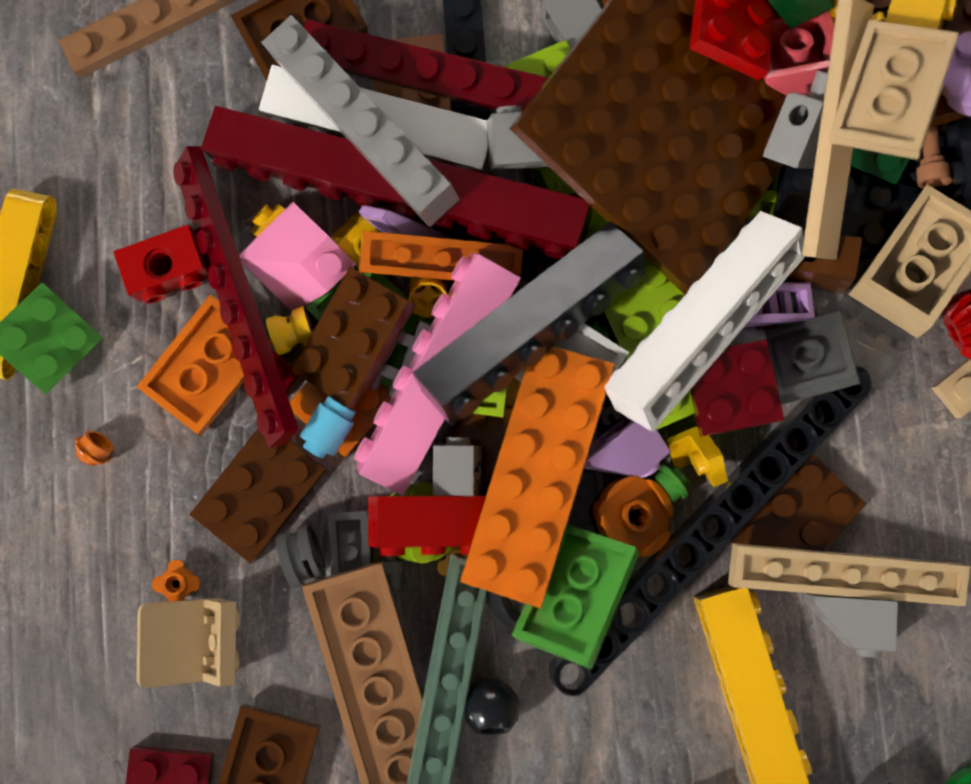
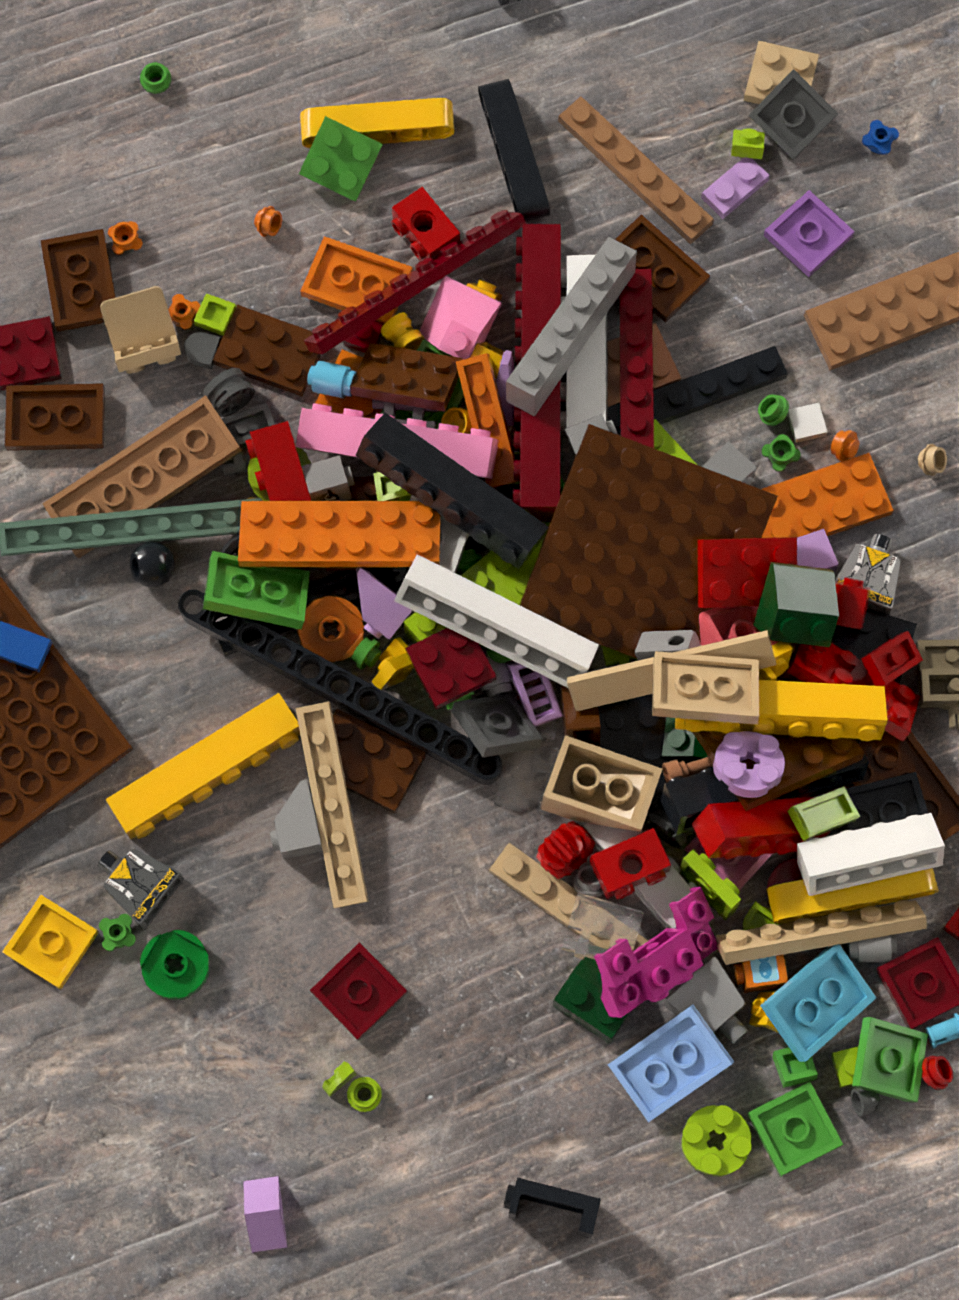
camera: 70 degrees right, 10 degrees down
(45, 630) = (125, 229): none -> orange plate
(90, 700) = (78, 278): none -> reddish brown plate
(98, 135) = (514, 150): none -> black beam
(193, 545) = (214, 314): none -> lime plate
(231, 572) = (201, 349): none -> dark grey tile

